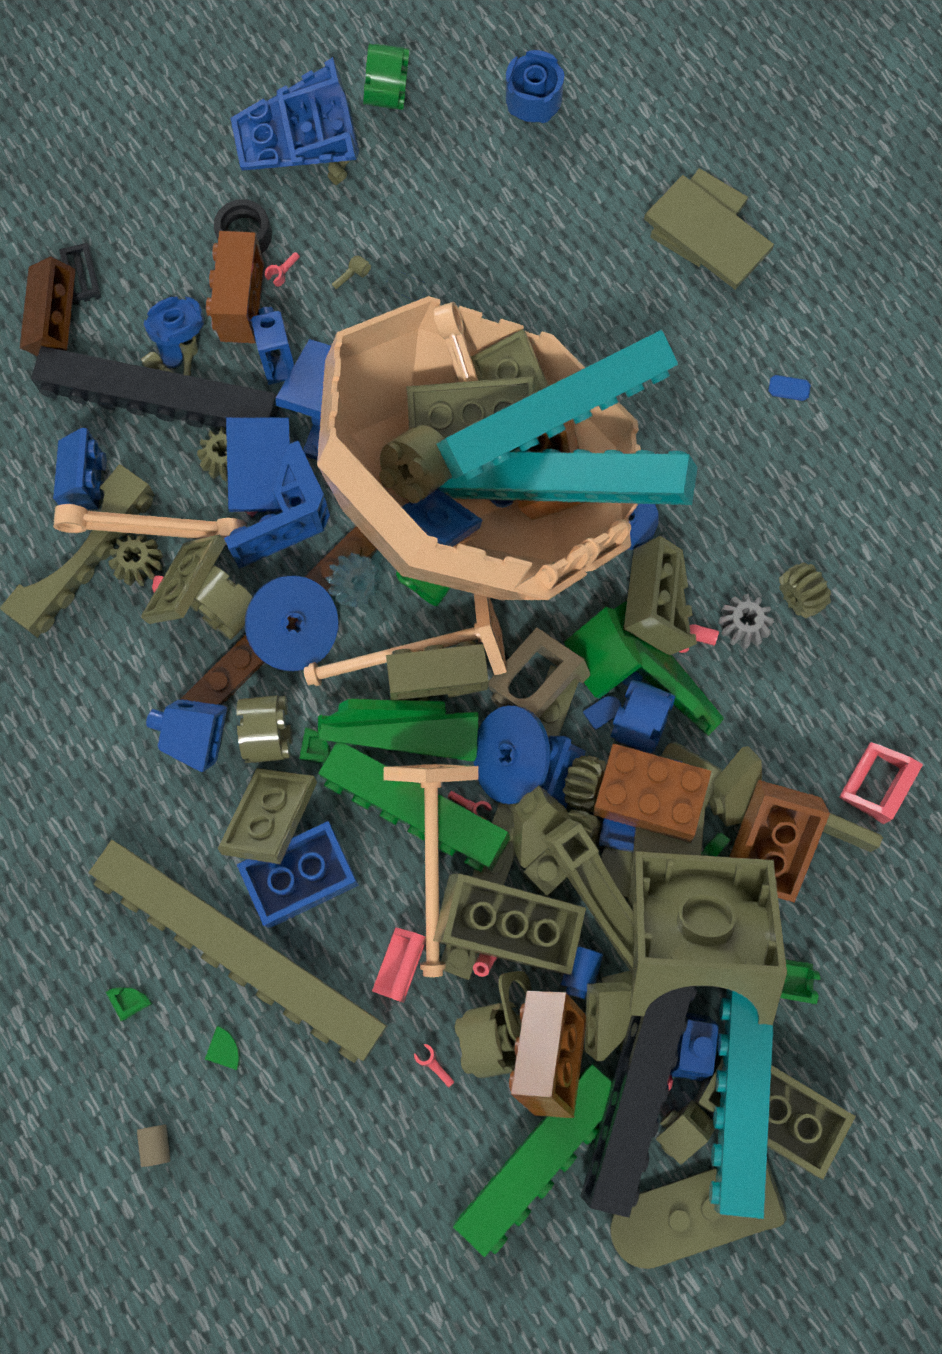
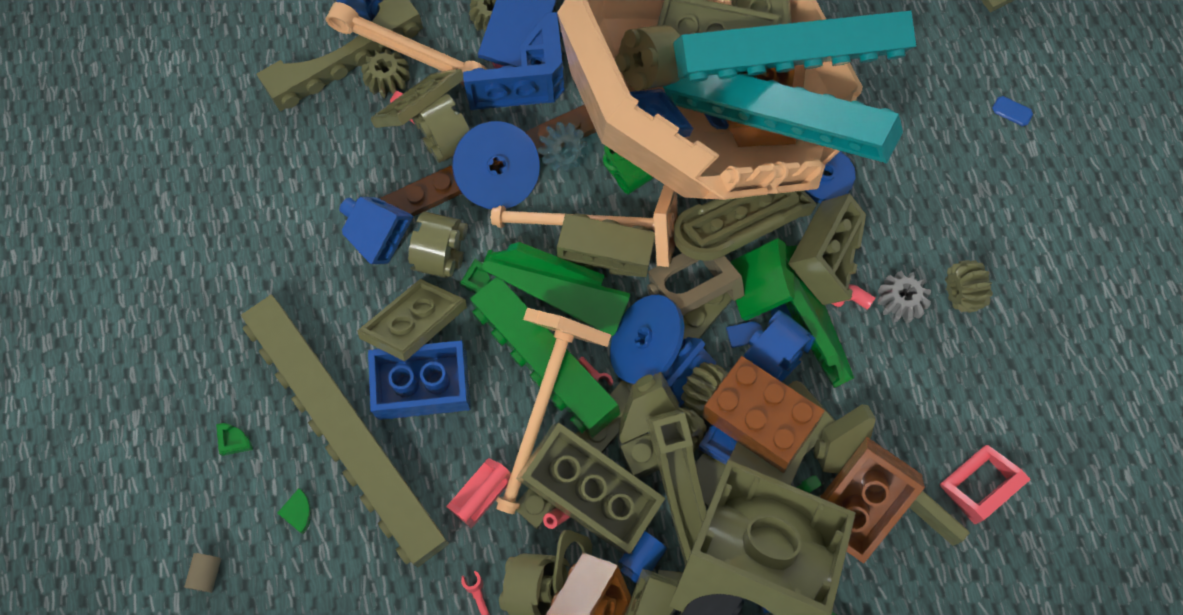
camera: 20 degrees right, 5 degrees down
(538, 625) = (725, 225): none -> olive piece

